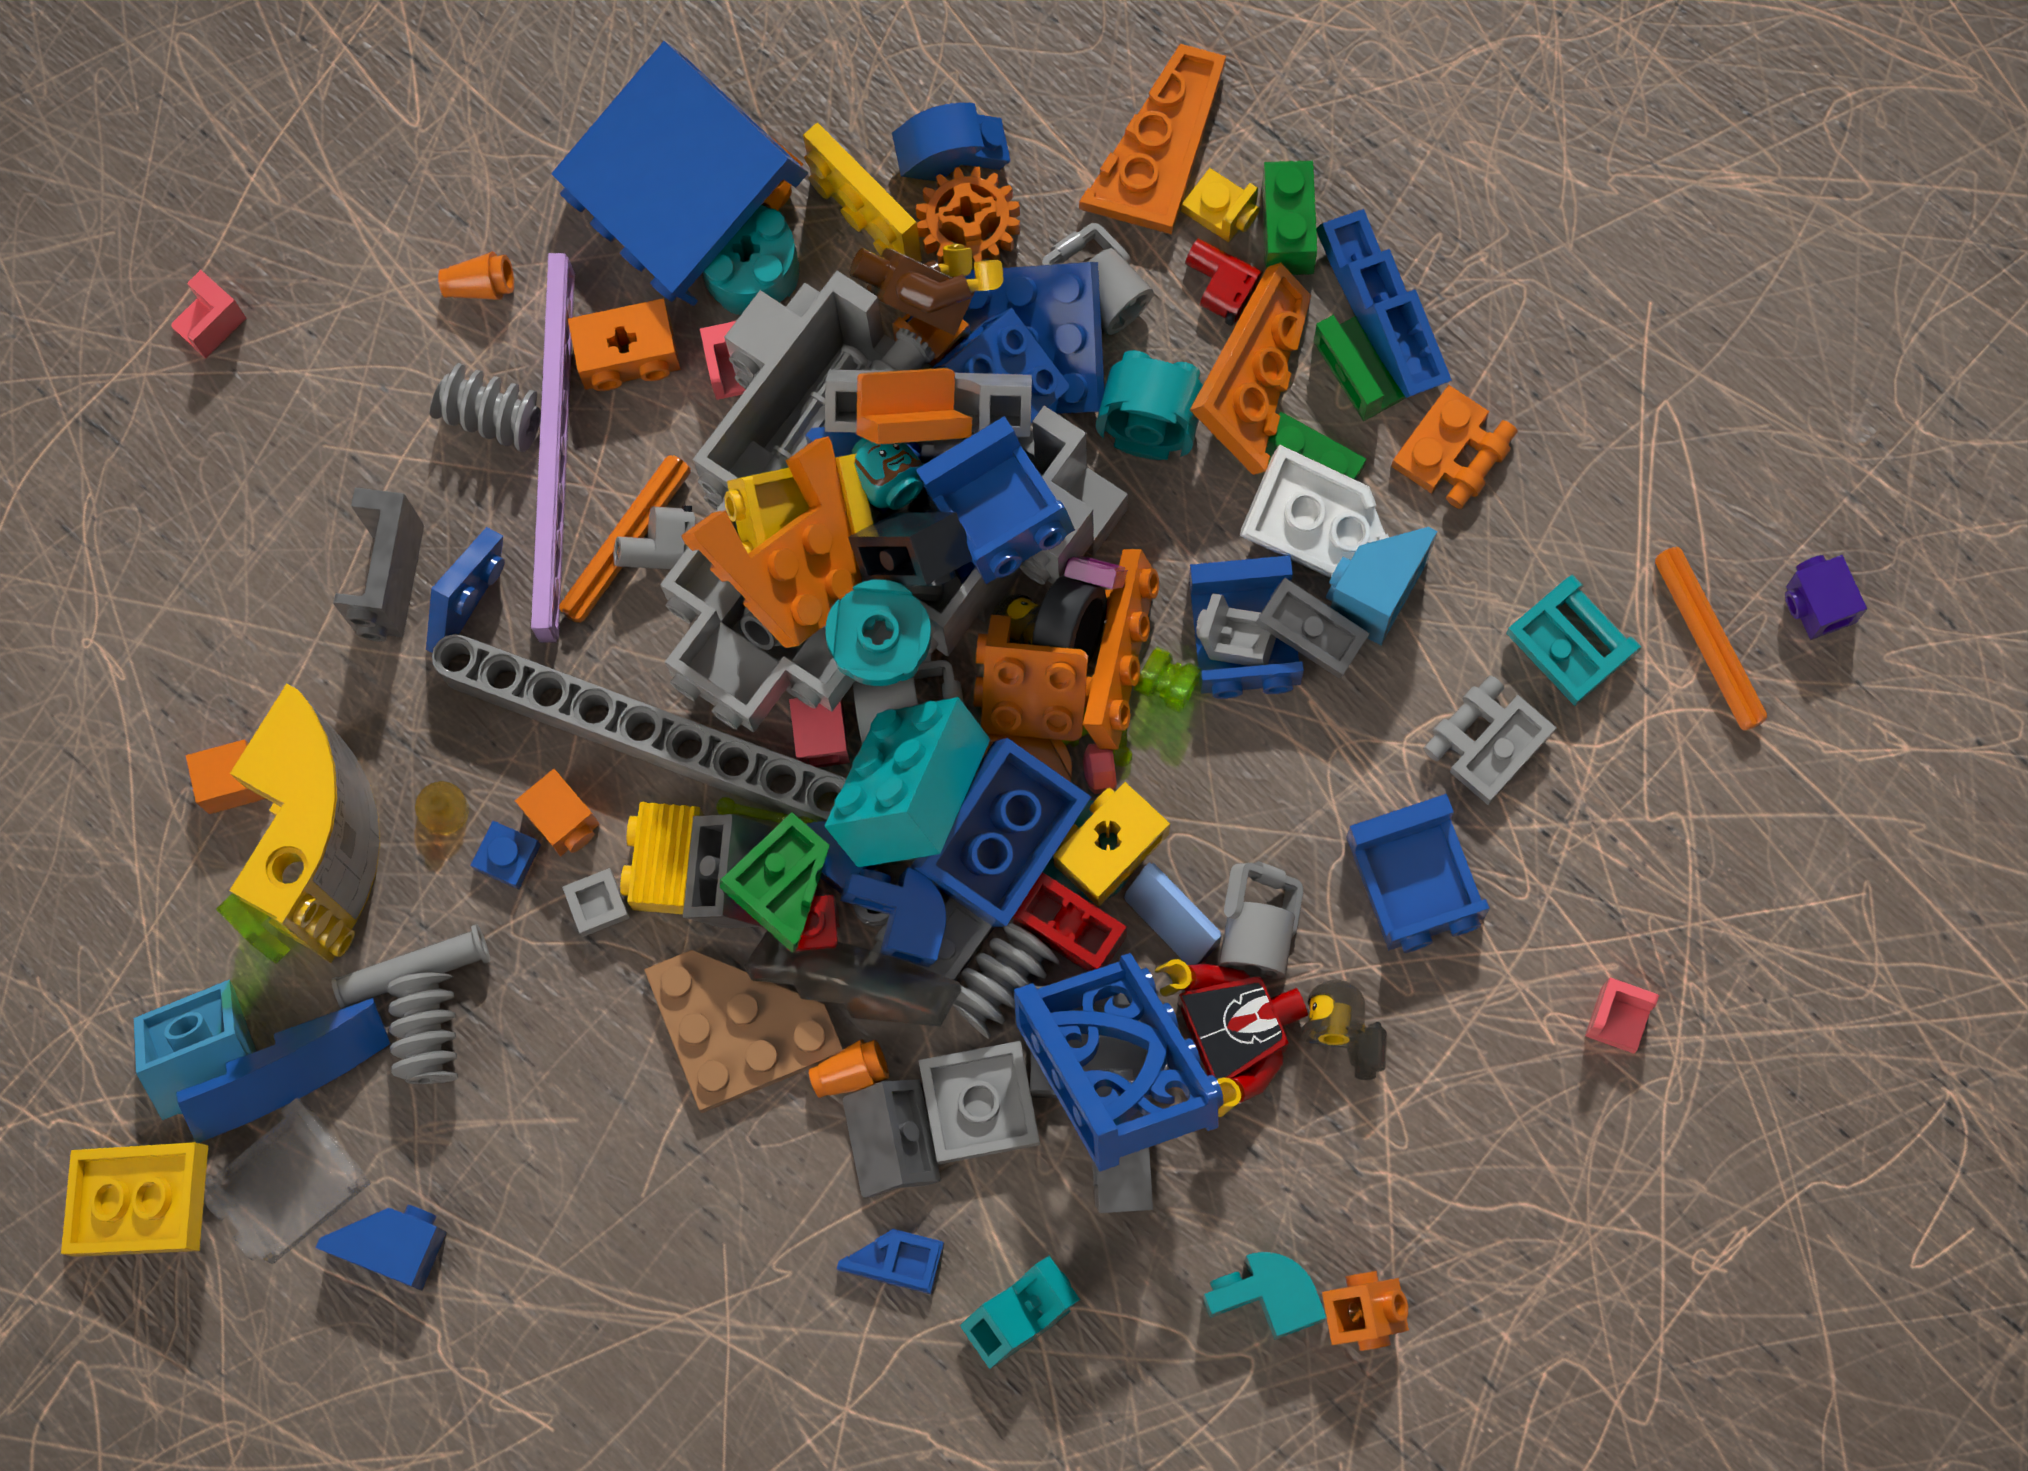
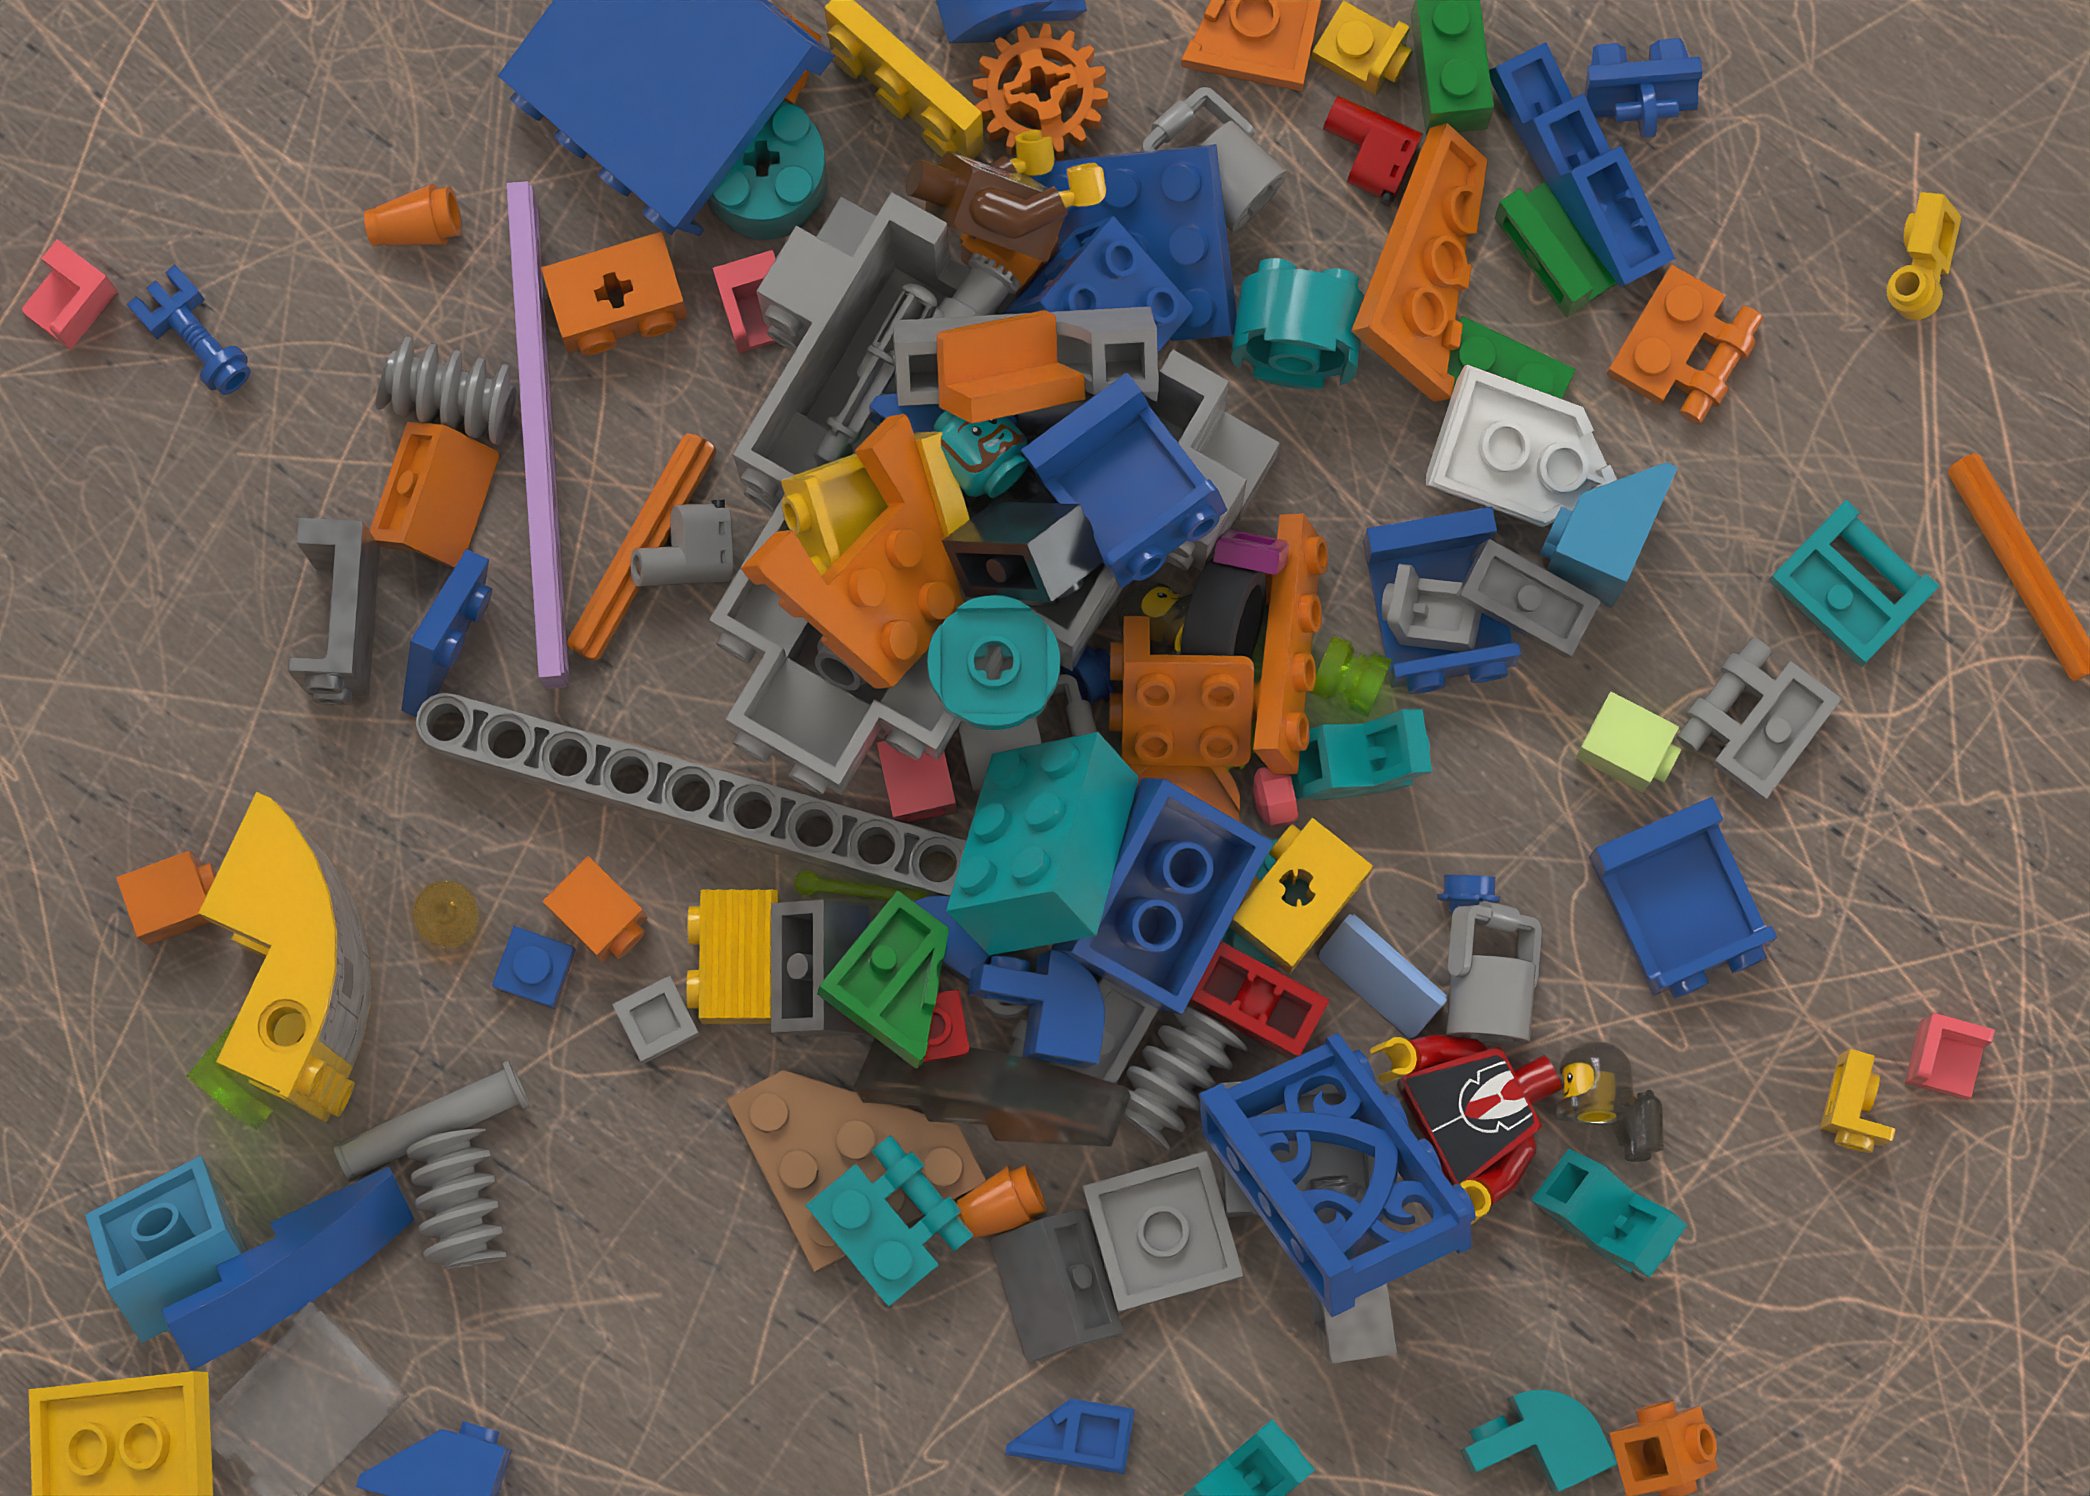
camera: 10 degrees left, 5 degrees up
(318, 378) = (223, 367): none -> blue hinge
(469, 484) = (434, 493): none -> orange panel
(748, 1084) = (875, 1235): none -> teal plate
(964, 663) = (1093, 675): none -> blue plate
(1170, 743) = (1363, 757): none -> teal brick
(1247, 852) = (1468, 890): none -> blue plate
(1336, 1117) = (1608, 1214): none -> teal brick
(1384, 749) = (1630, 743): none -> yellowish green brick
(1437, 249) = (1643, 88): none -> blue hips
(1541, 1037) = (1850, 1092): none -> yellow bracket
(1654, 381) = (1930, 241): none -> yellow plate

